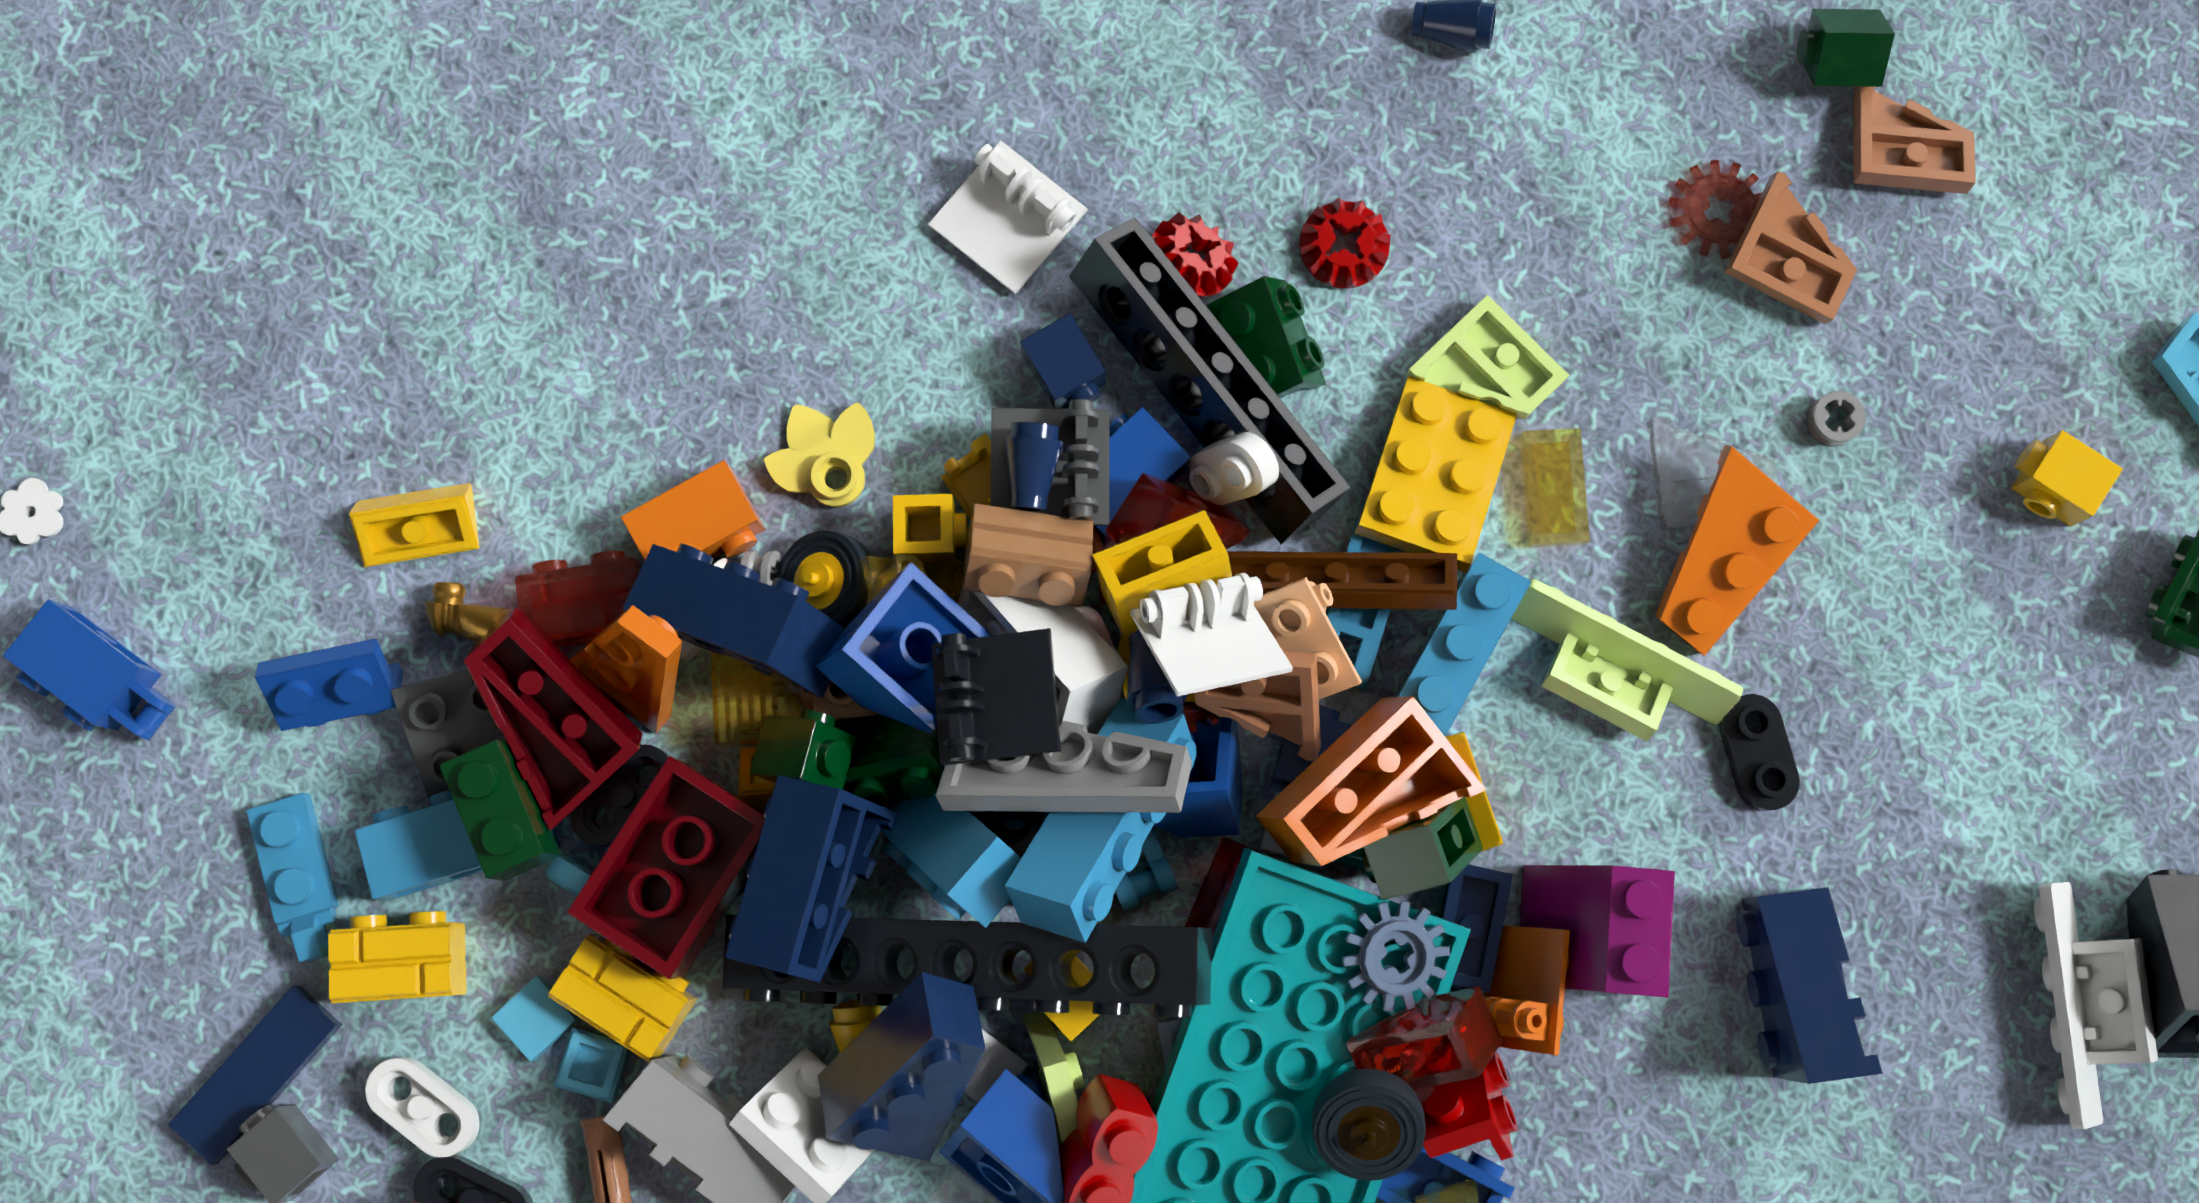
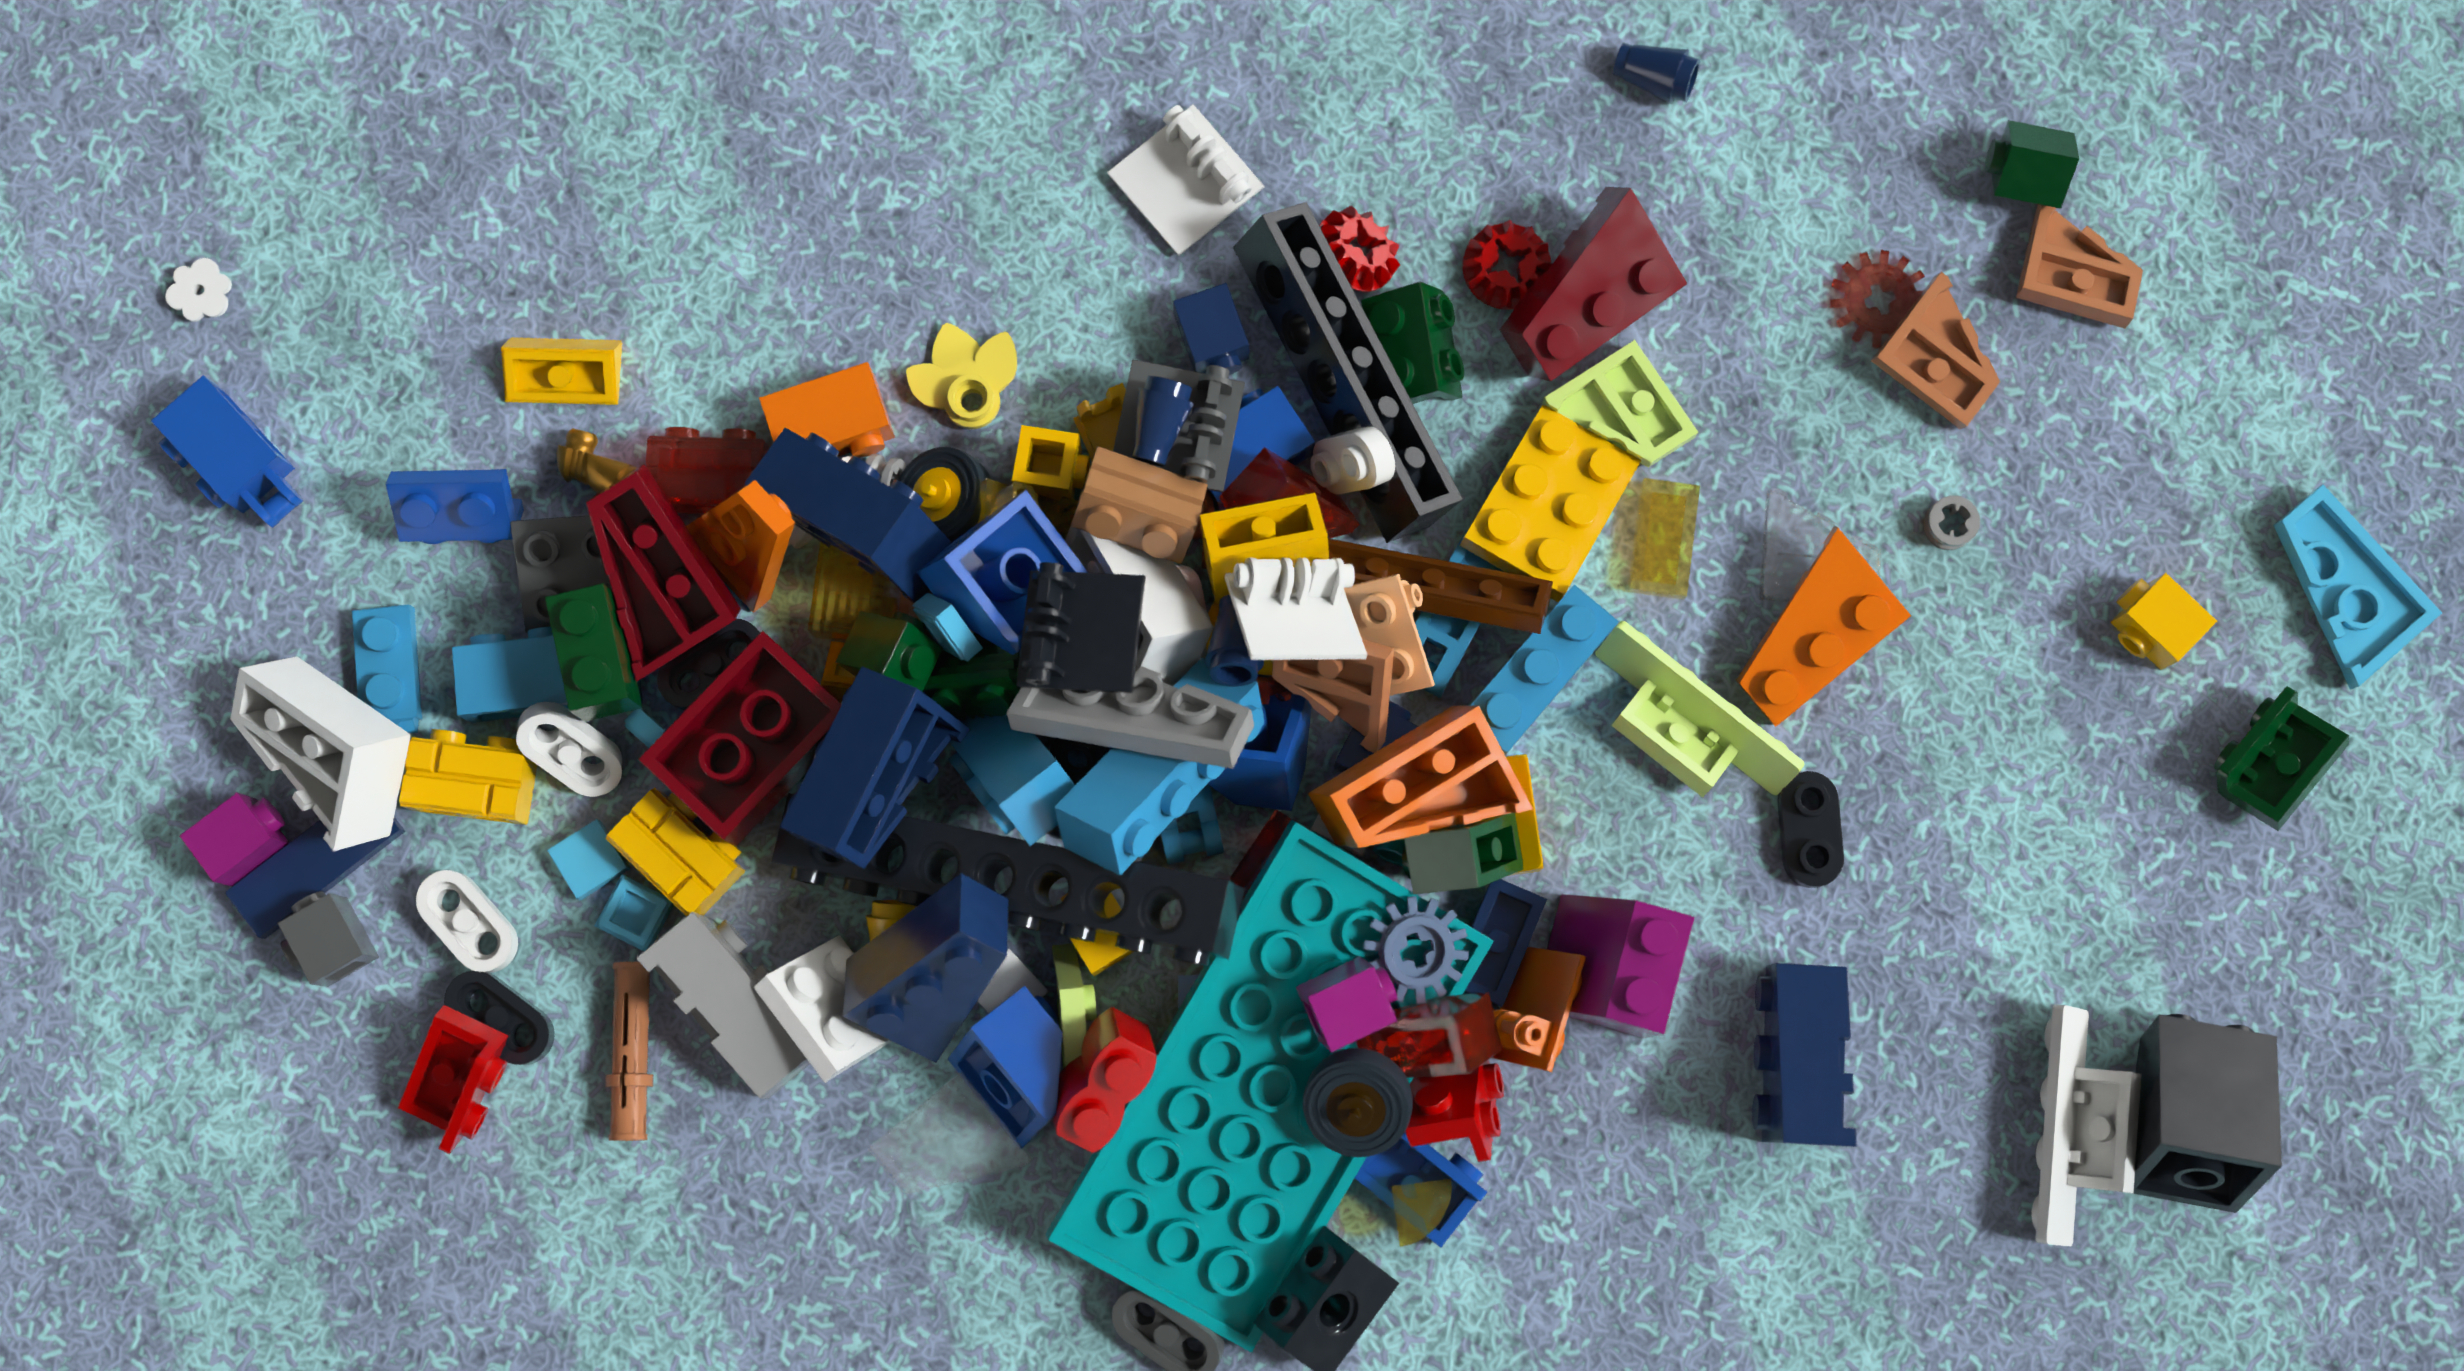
camera: 10 degrees right, 0 degrees up
(168, 1068) = (236, 838): none -> magenta brick
(244, 955) = (327, 744): none -> white wedge
(491, 911) = (566, 747): none -> white plate
(856, 716) = (946, 627): none -> medium azure tile
(1341, 1026) = (1348, 1002): none -> magenta brick
(1439, 251) = (1594, 289): none -> dark red wedge

